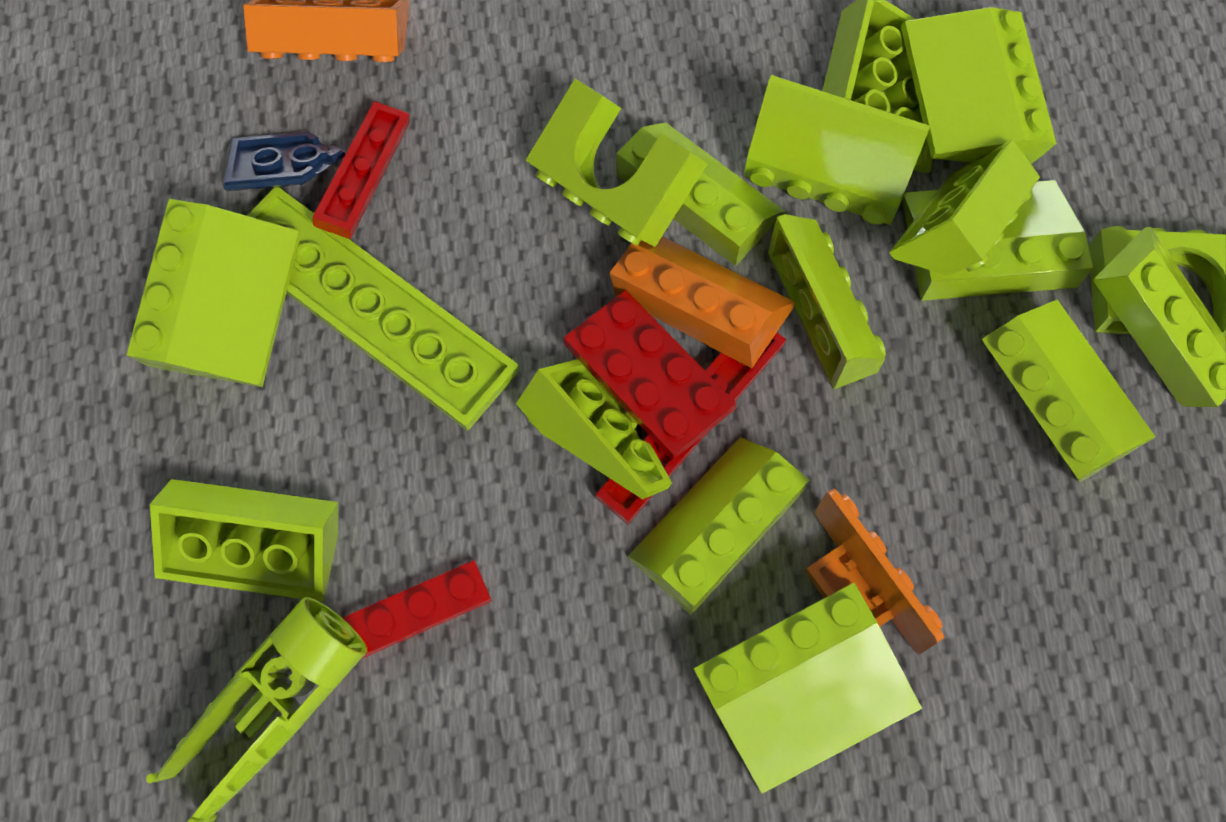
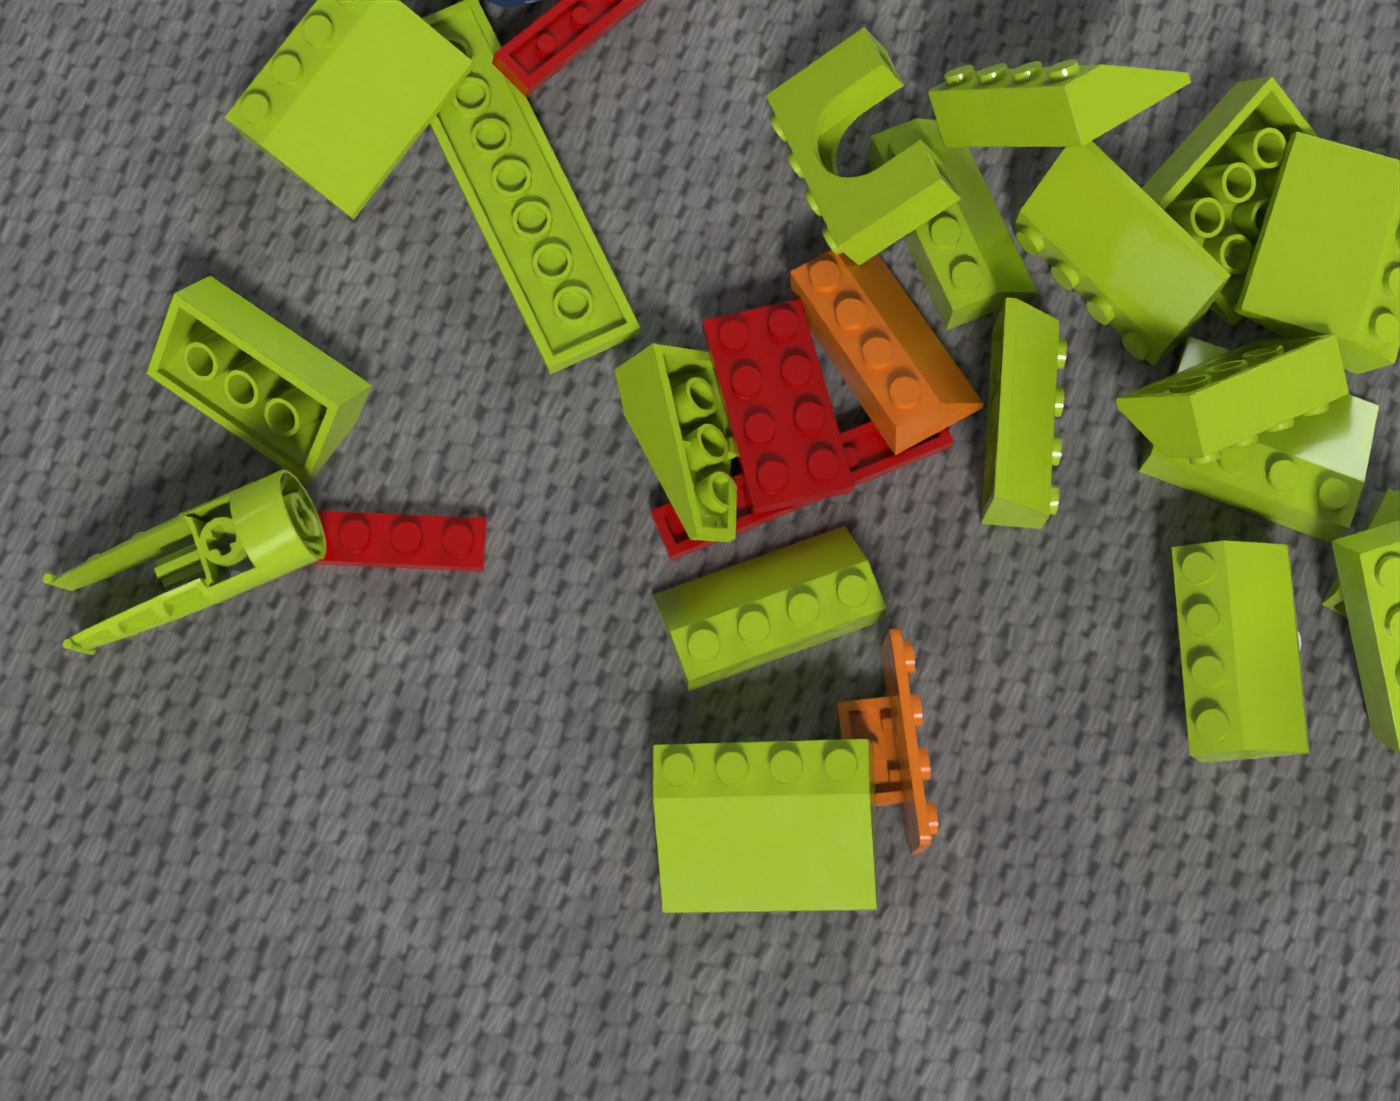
camera: 25 degrees right, 5 degrees up
(731, 70) = (1044, 104): none -> lime slope

